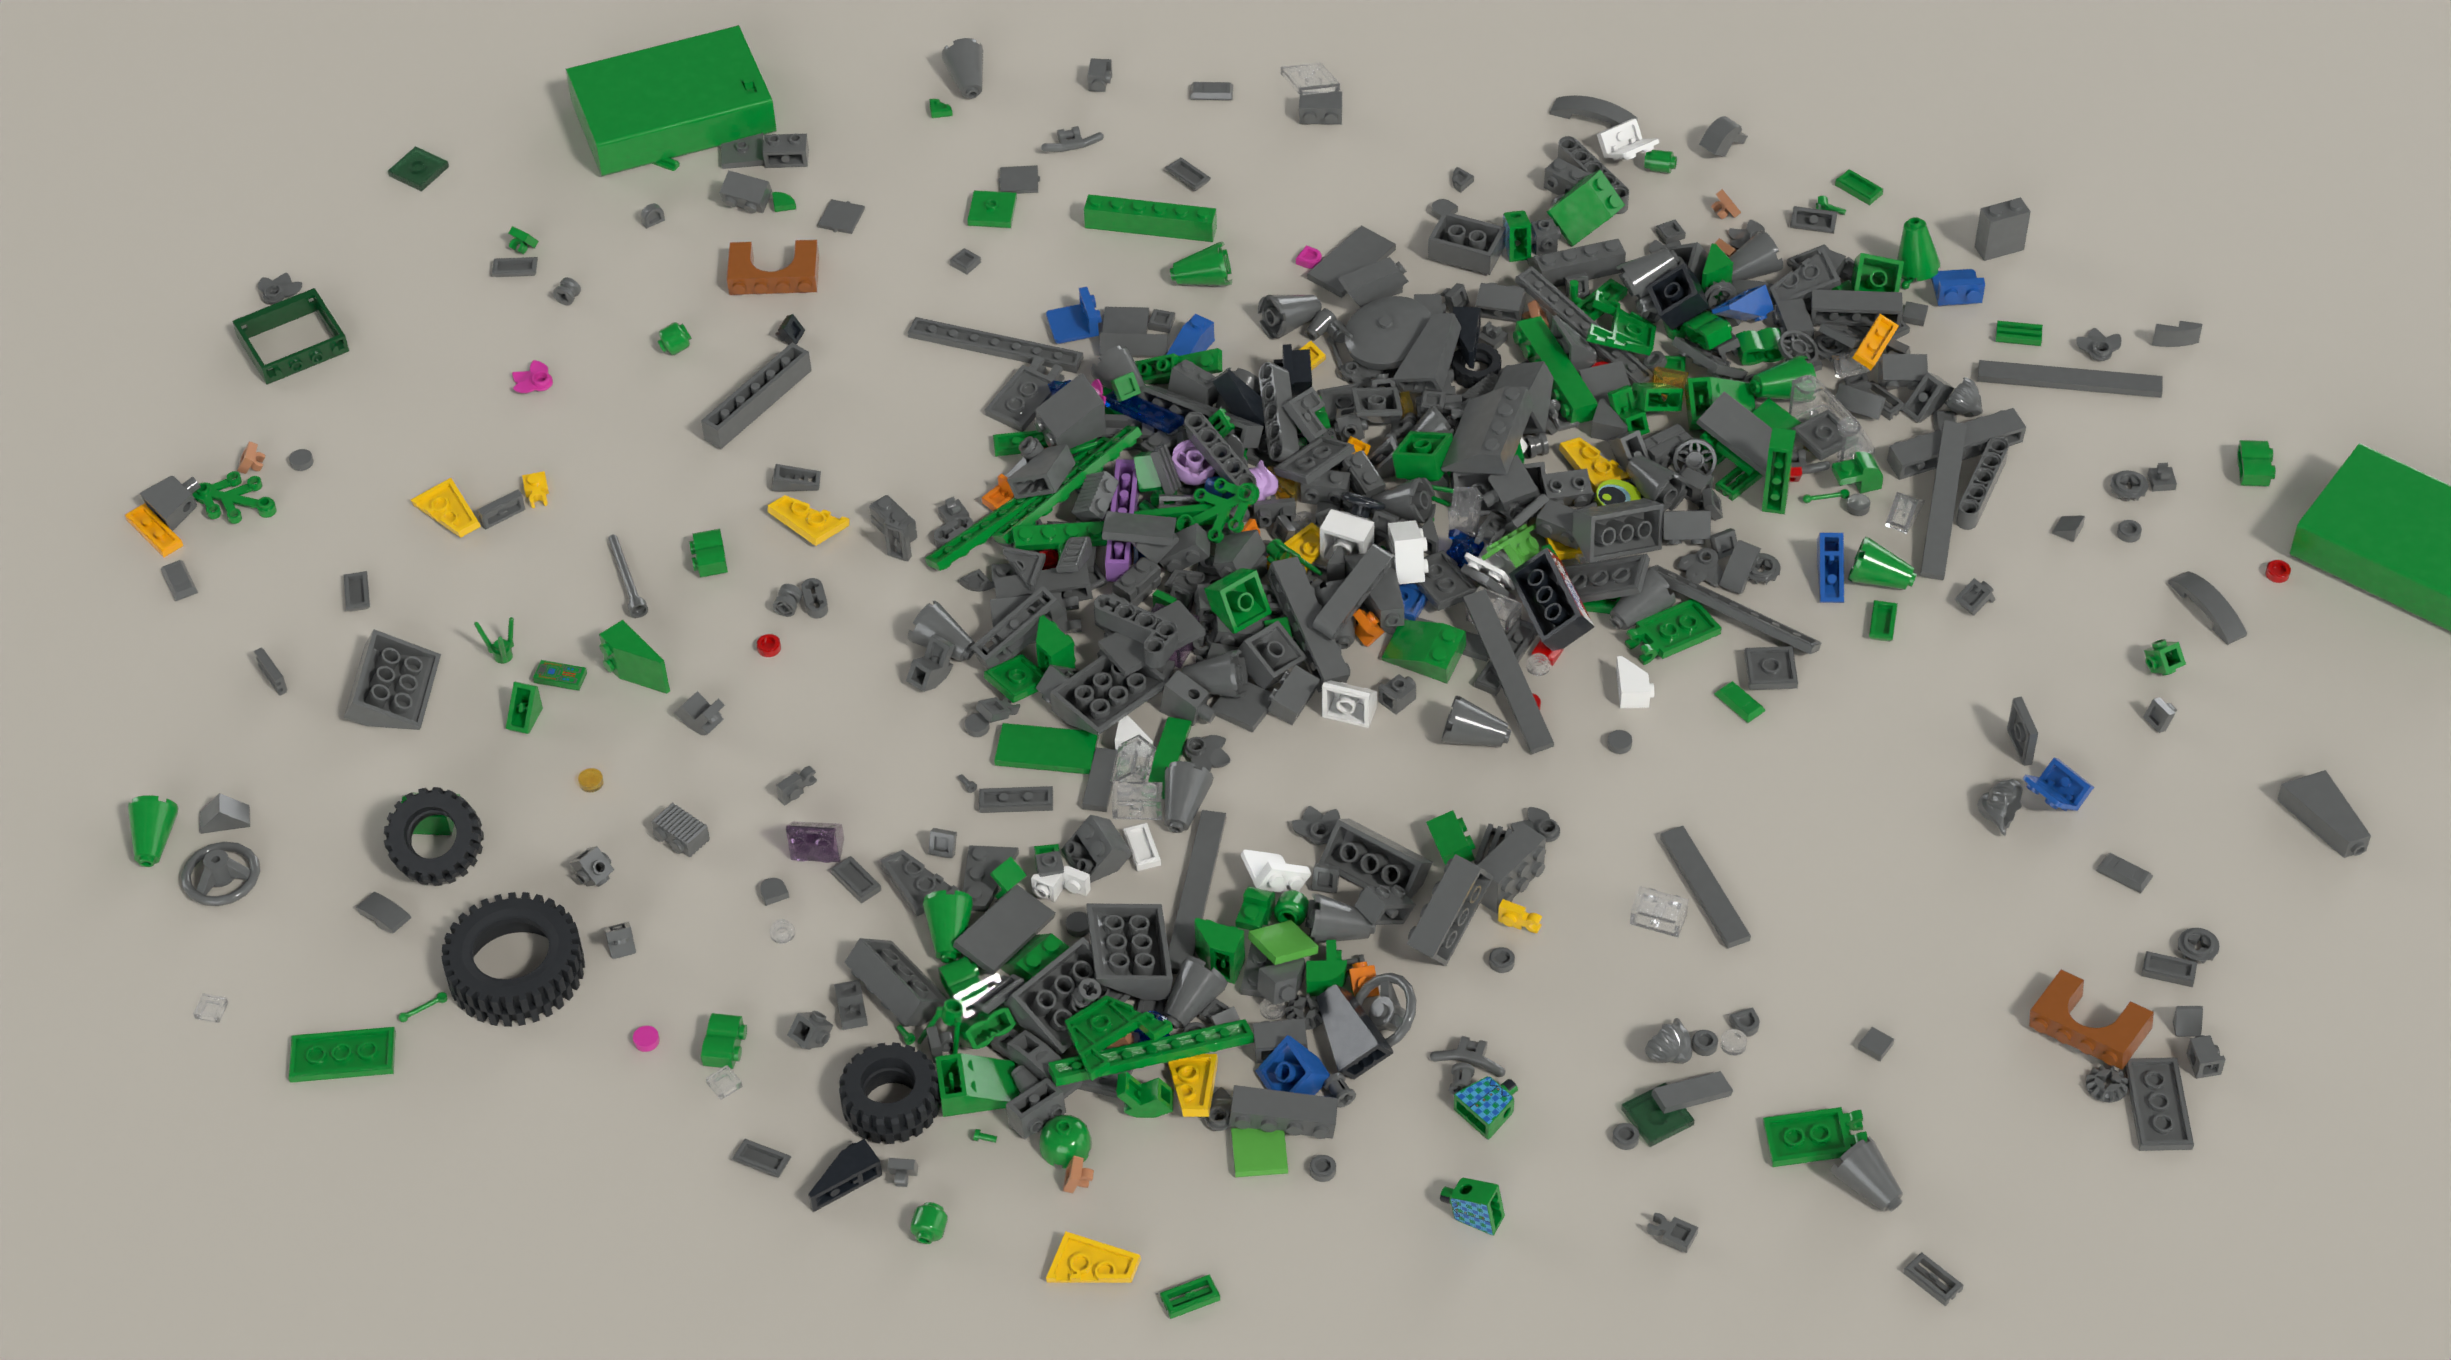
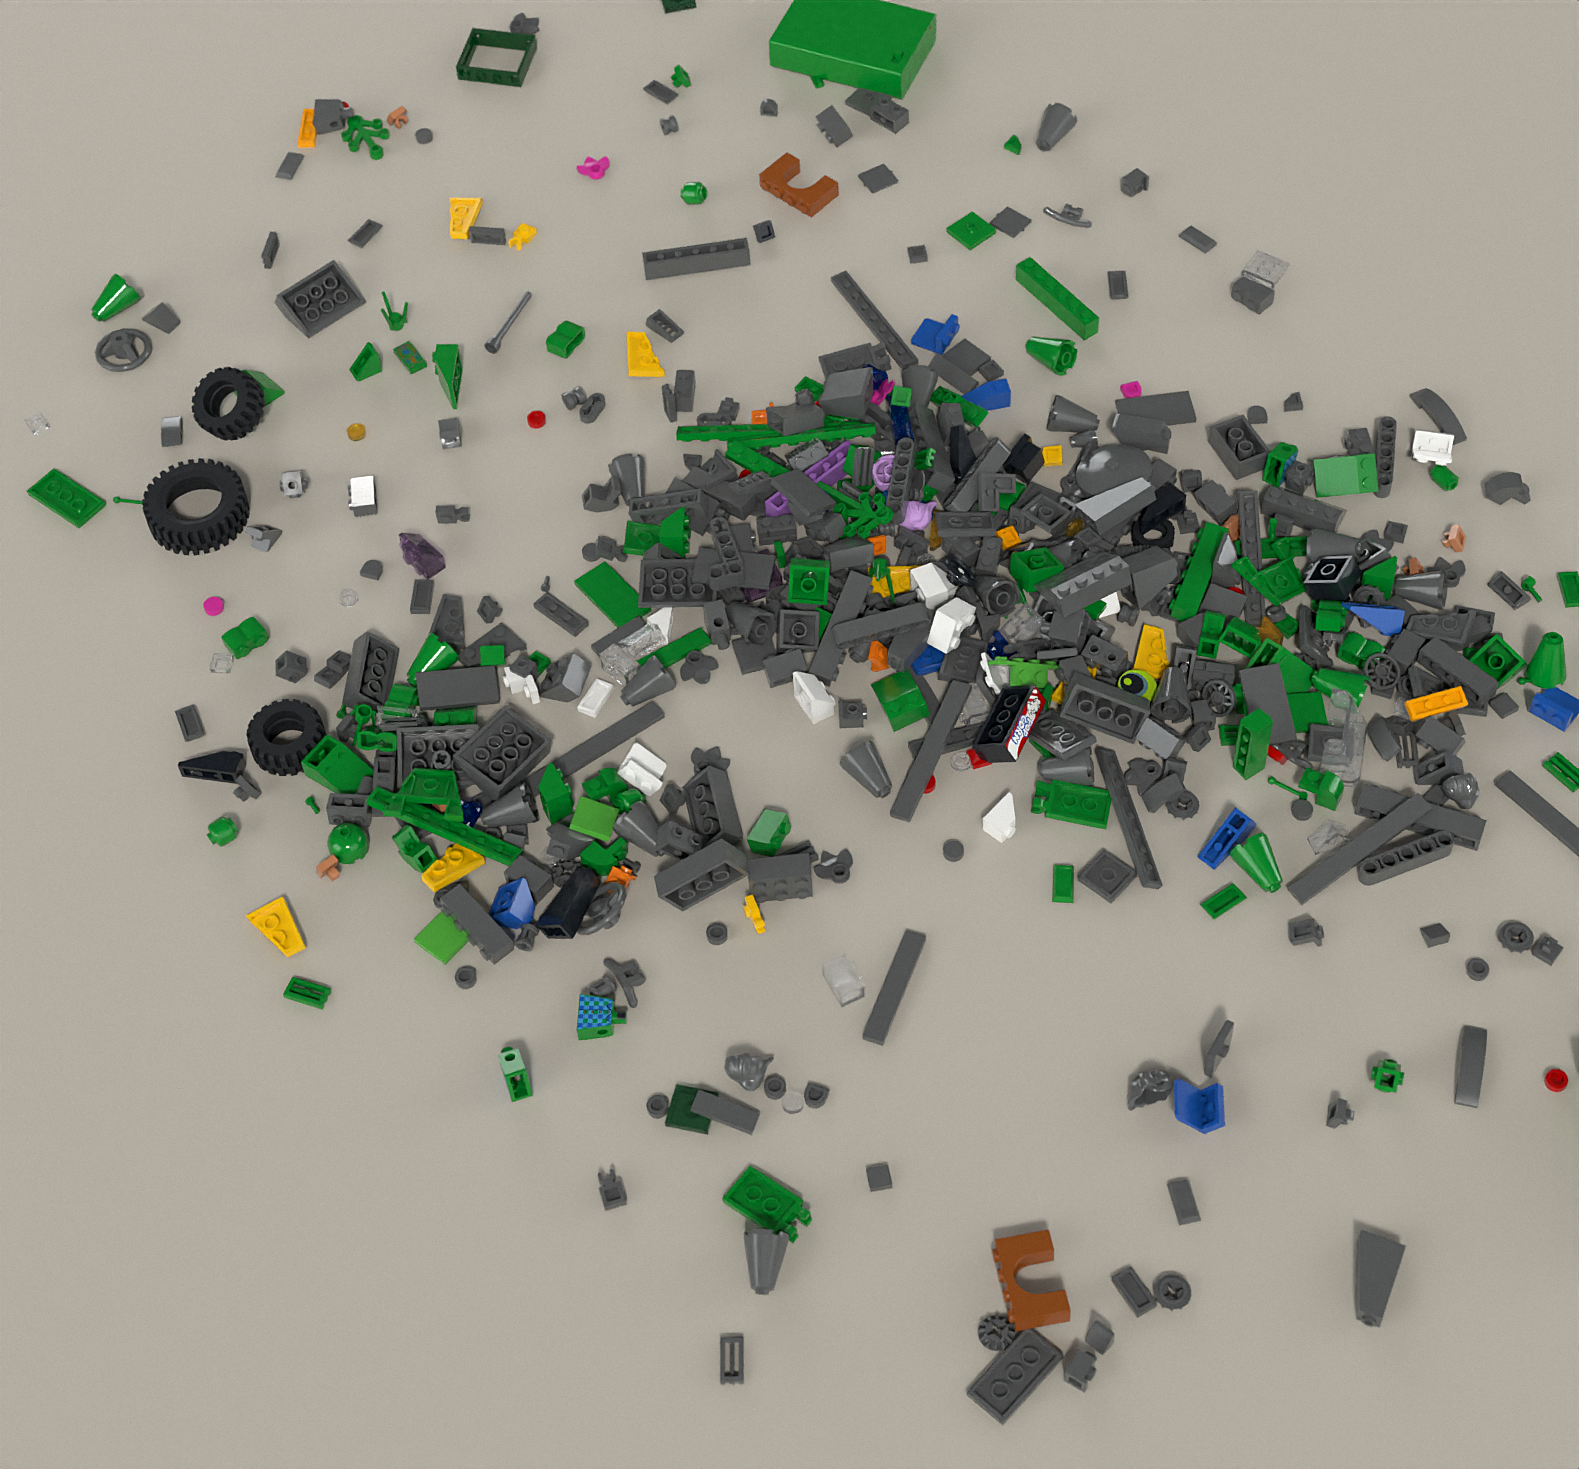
camera: 45 degrees right, 5 degrees up
(783, 202) = (853, 147): green tile -> none

